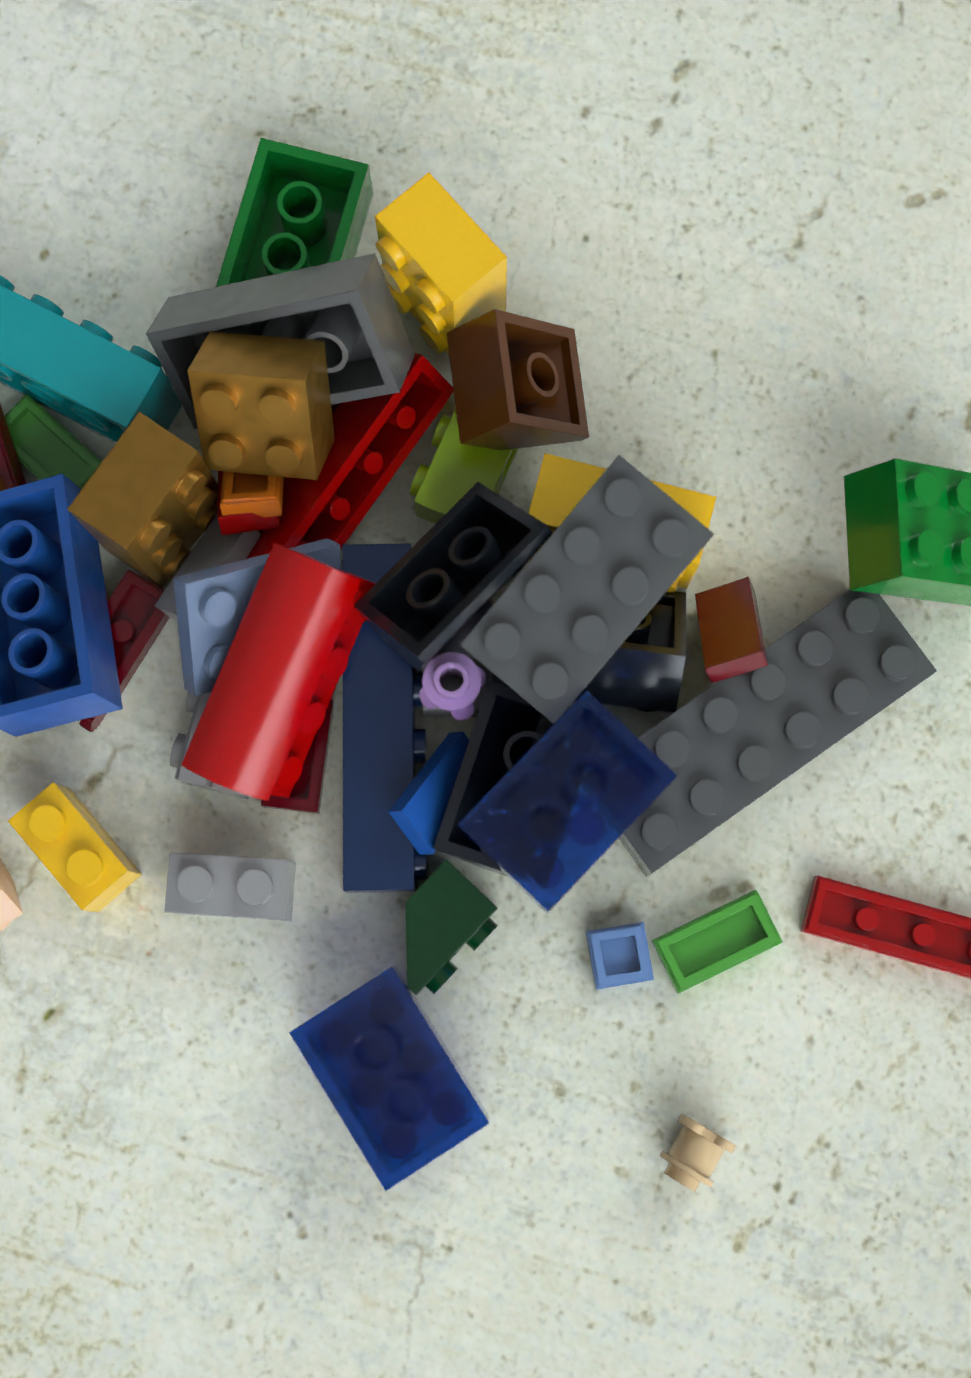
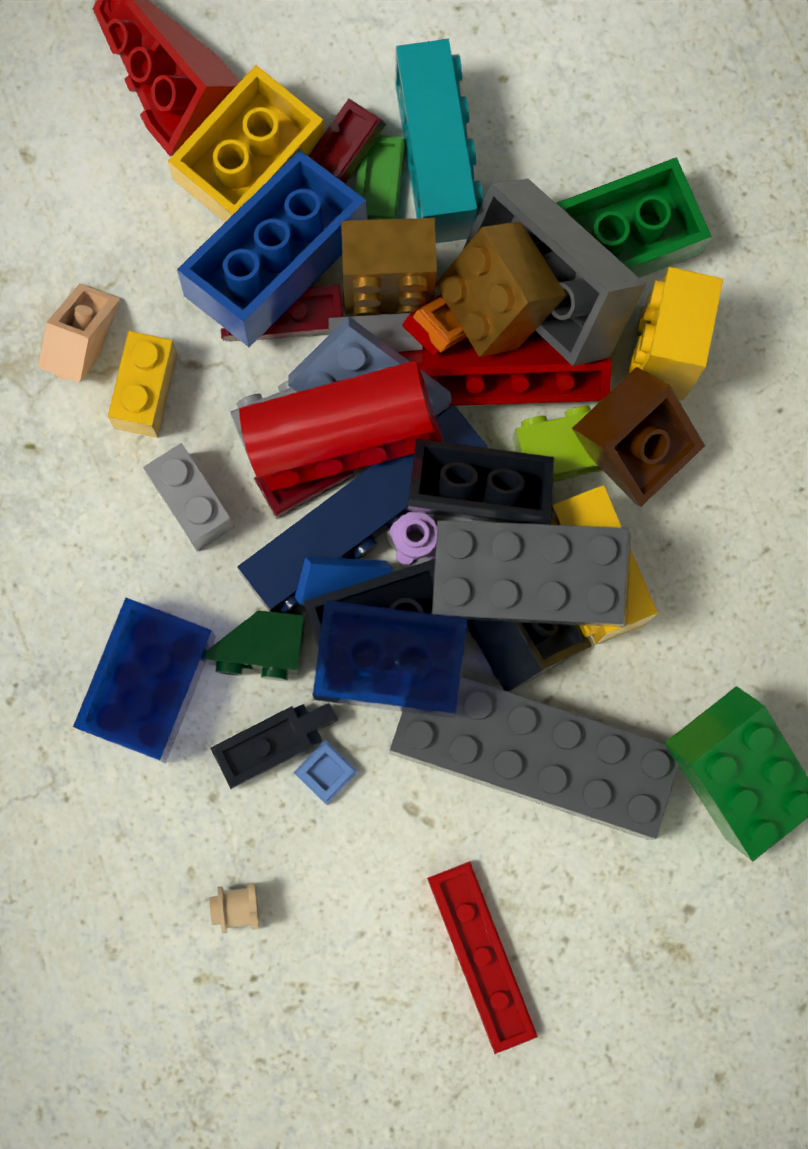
camera: 45 degrees right, 0 degrees up
(550, 991) = (271, 742): none -> black hinge
(716, 941) = (380, 827): bright green tile -> none
(730, 630) = (584, 688): dark red tile -> none

